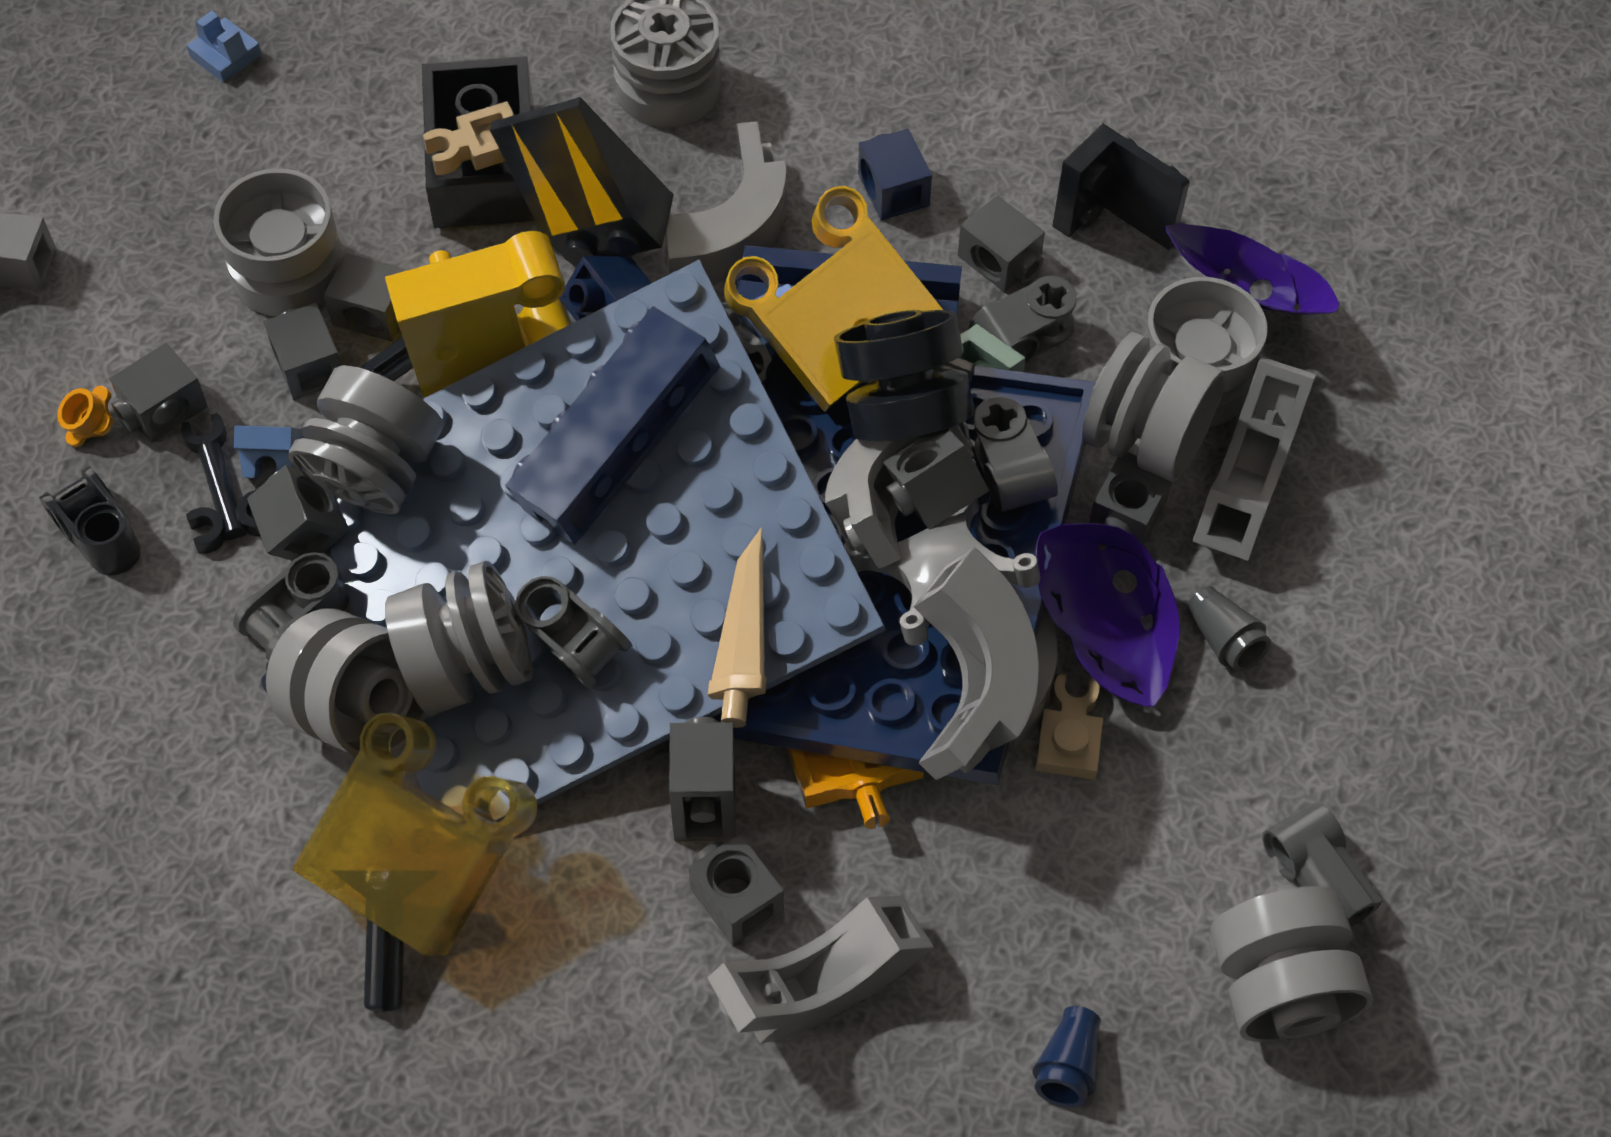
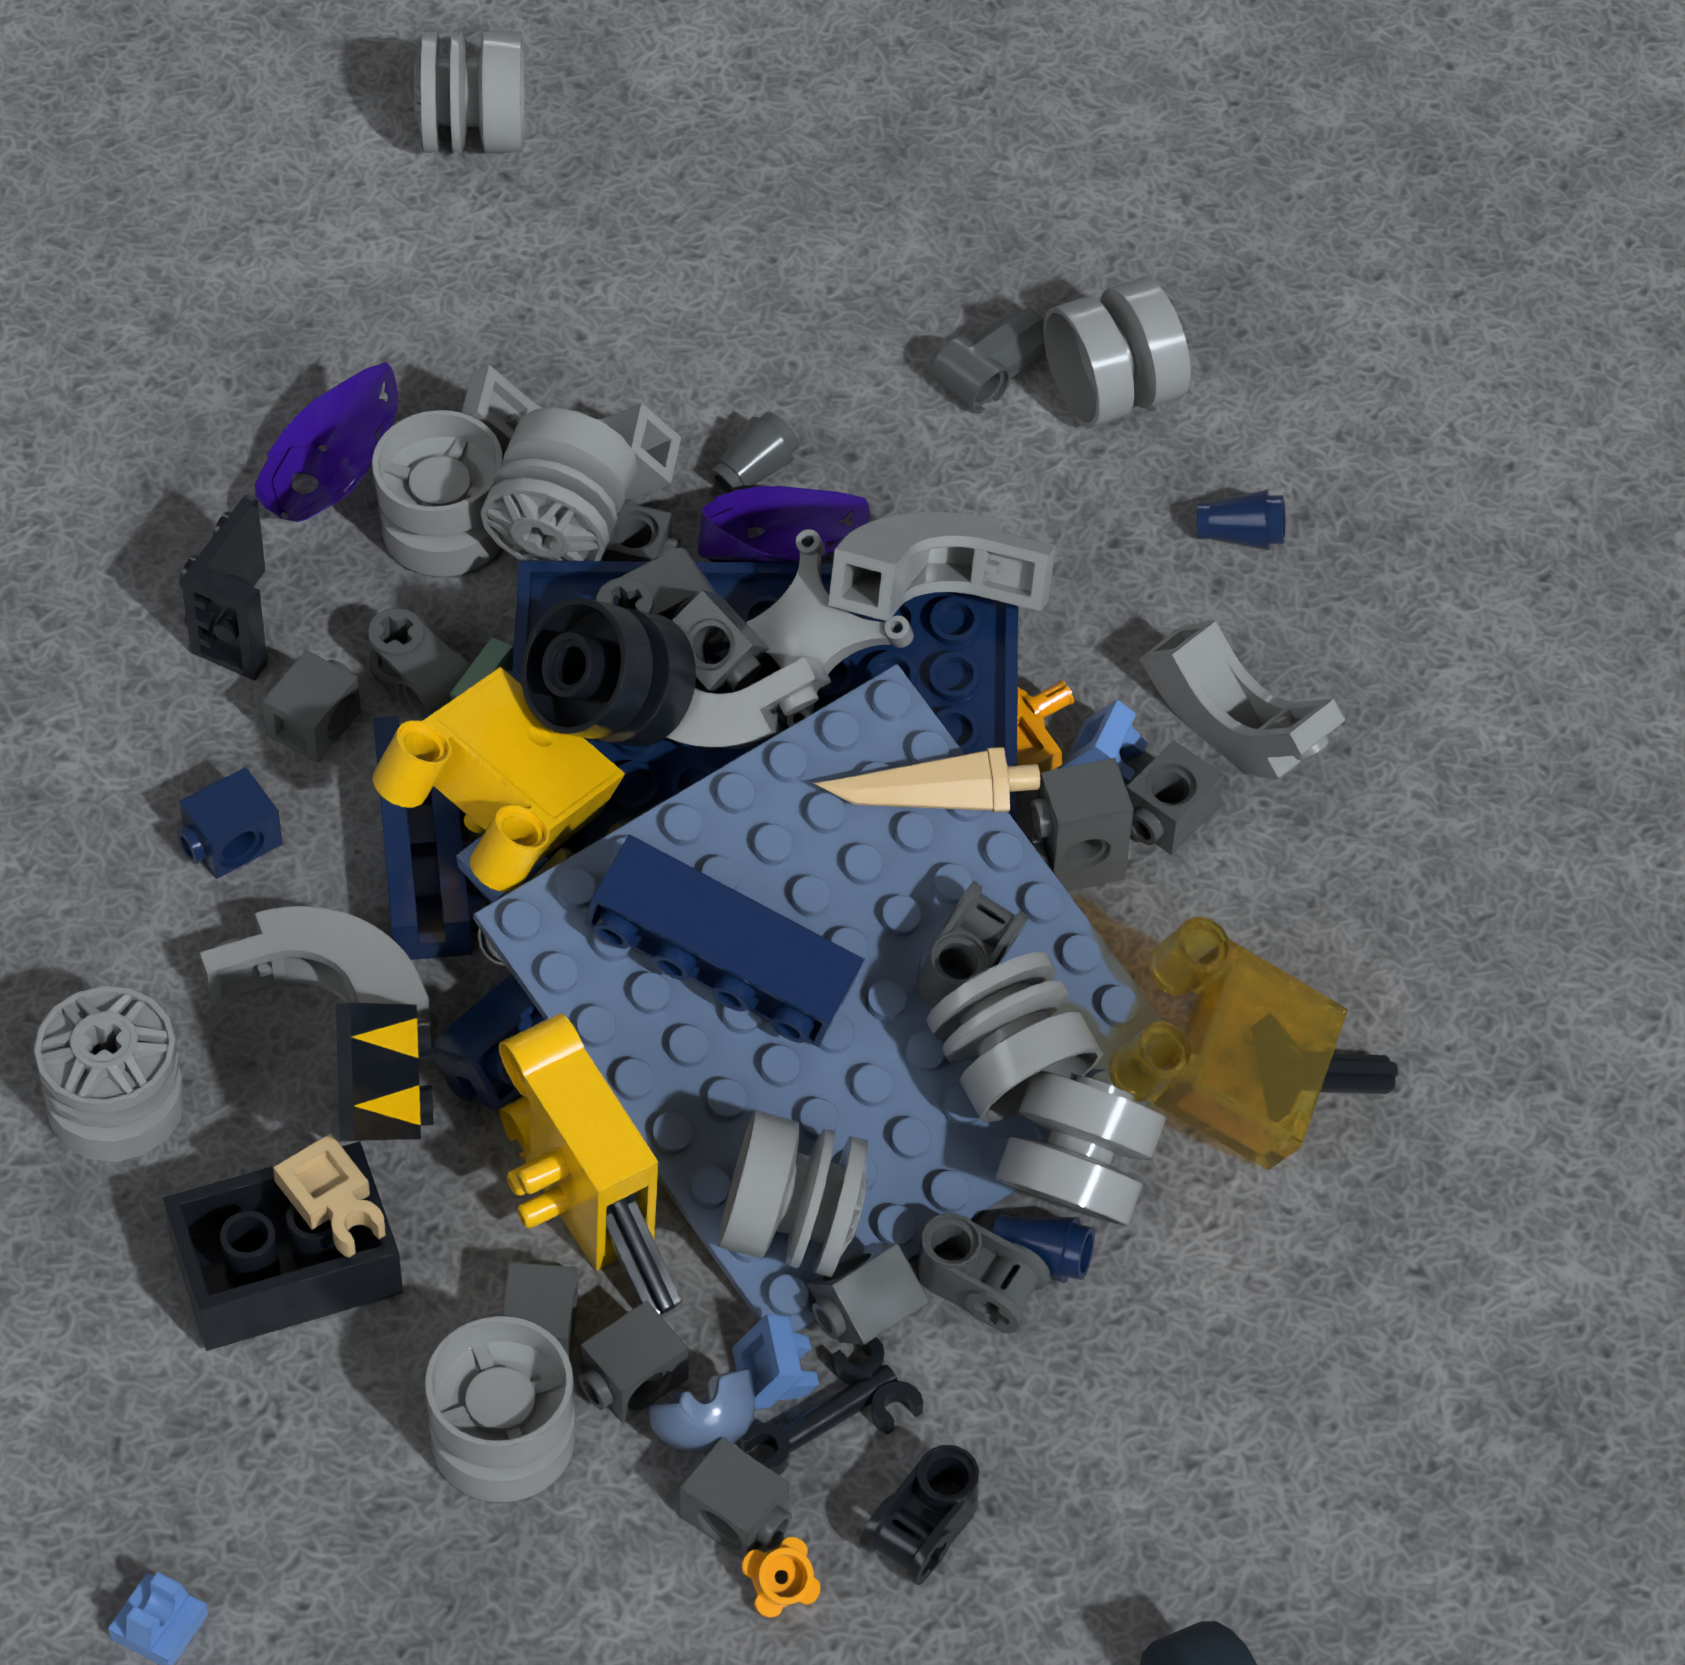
camera: 105 degrees left, 5 degrees down
(235, 382) = (700, 1425): none -> sand blue hair
(817, 842) = (1105, 737): none -> medium blue tile

